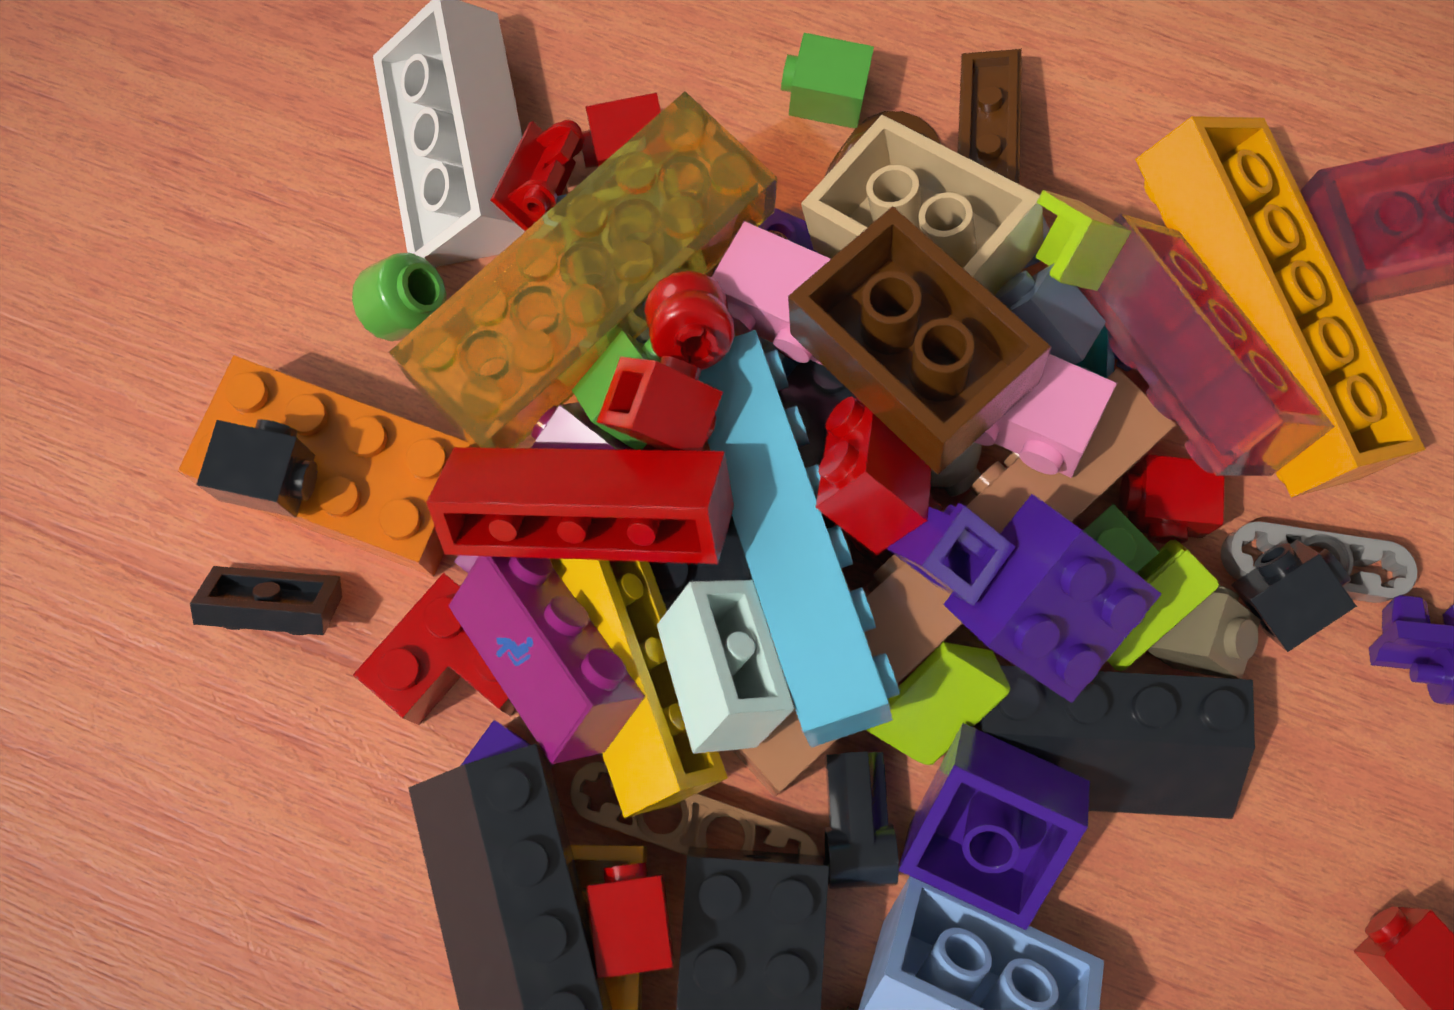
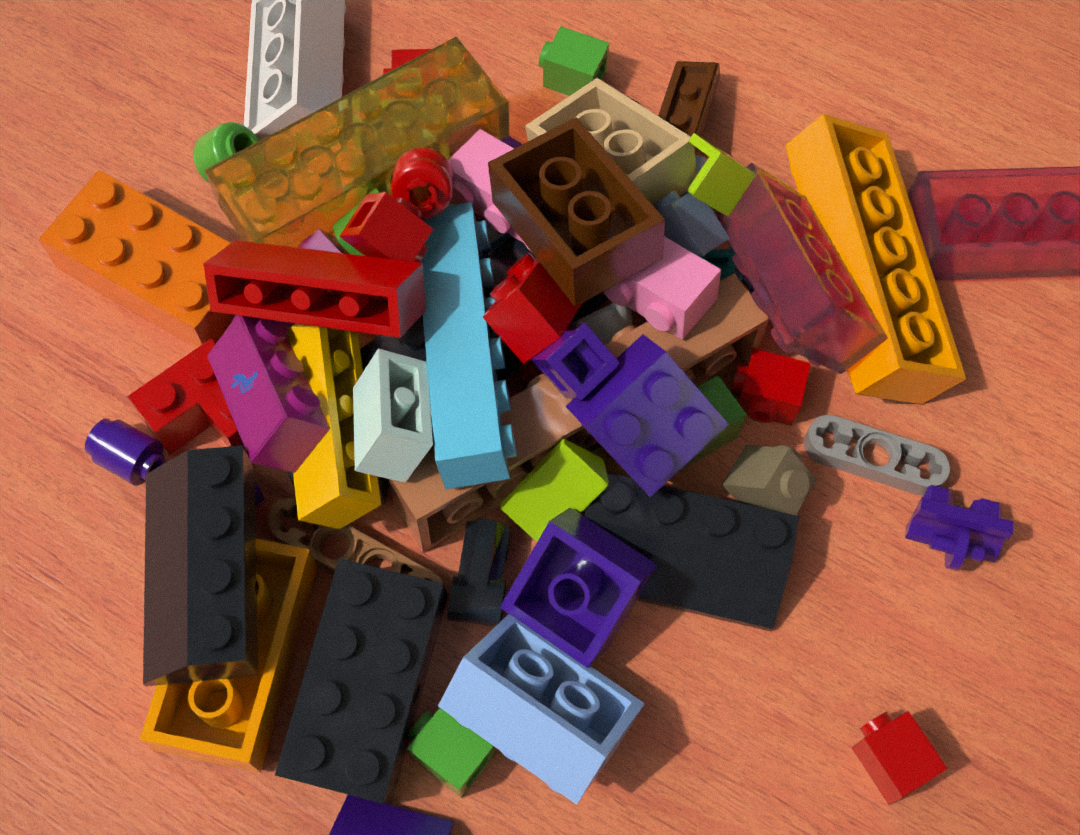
camera: 10 degrees right, 10 degrees down
(258, 467) = (94, 238): black brick -> none
(266, 600) = (81, 344): black plate -> none
(363, 739) = (124, 450): none -> dark purple brick
(538, 171) = (346, 78): red hinge -> none
(630, 921) = (284, 591): red brick -> none
(1182, 587) = (732, 453): lime slope -> none
(1295, 592) = (847, 462): black brick -> none

